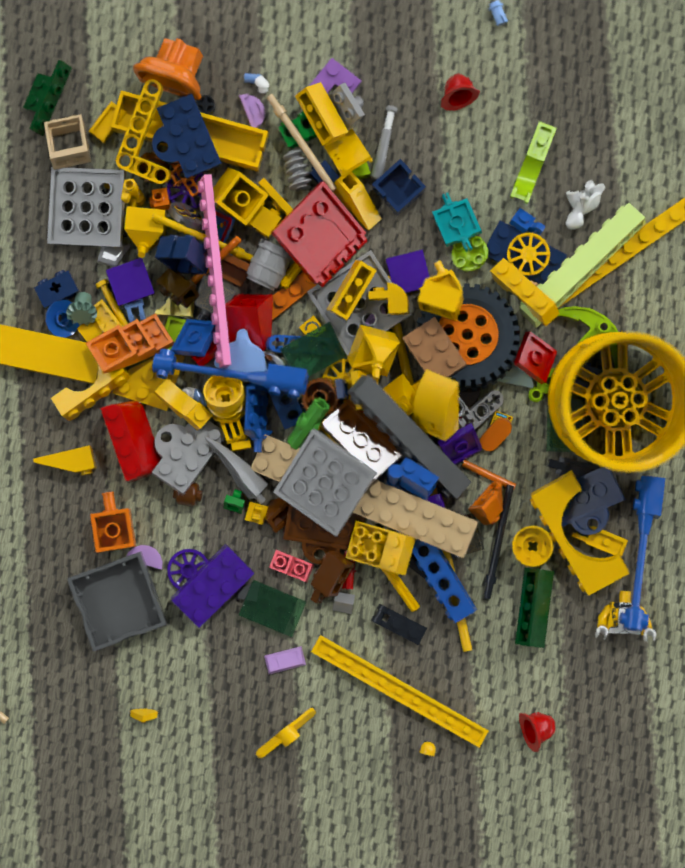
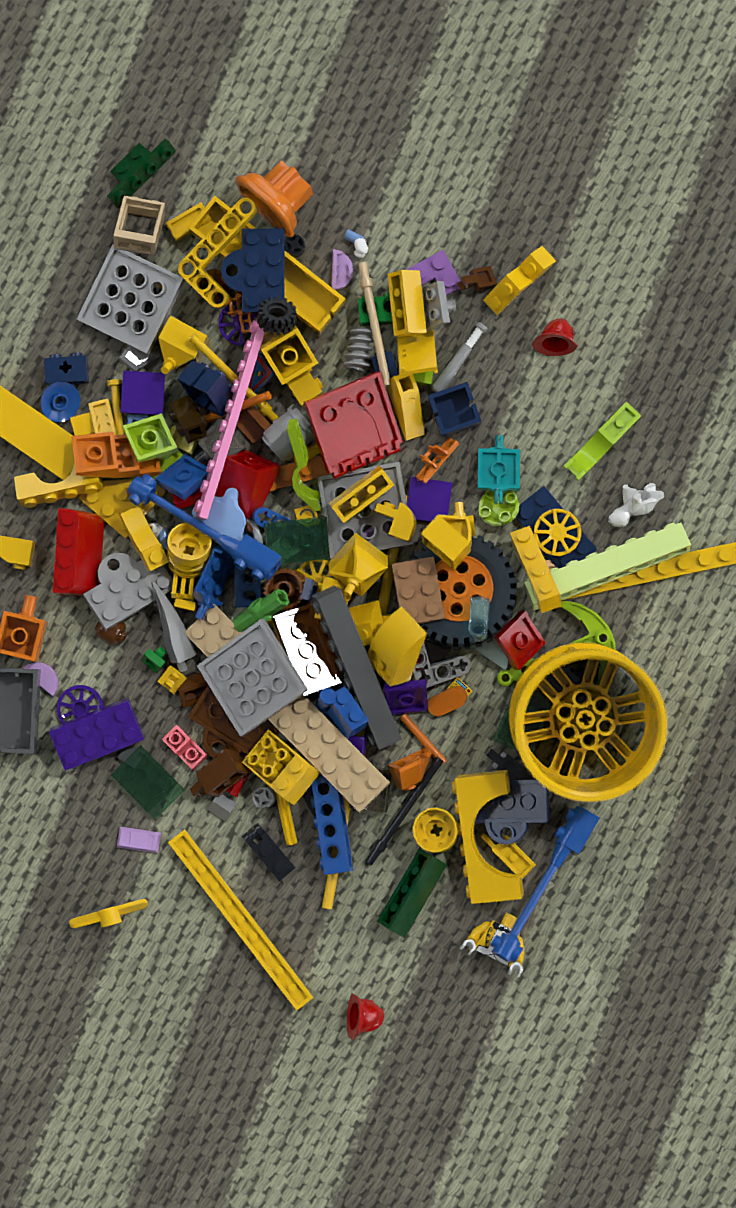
camera: 30 degrees right, 0 degrees up
(82, 310) = (82, 401): sand green gear -> none
(132, 194) = (182, 304): yellow piece -> none
(153, 317) = (150, 438): none -> lime slope
(160, 199) = (208, 322): orange plate -> none
(187, 214) = (227, 348): flat silver tile -> none
(215, 161) = (276, 324): none -> black tyre
(278, 202) = (326, 374): yellow plate -> none
(306, 310) = (310, 496): none -> lime piece
(372, 68) = (480, 278): none -> reddish brown plate
(373, 581) = (259, 796): none -> light grey wheel
(403, 228) = (431, 467): none -> orange piece
(406, 56) = (519, 279): none -> yellow arch
(428, 748) = (245, 990): yellow hinge -> none
(495, 351) = (479, 617): none -> clear light blue piece
(498, 13) = (631, 273): light blue pin -> none
(525, 222) = (567, 498): blue plate -> none

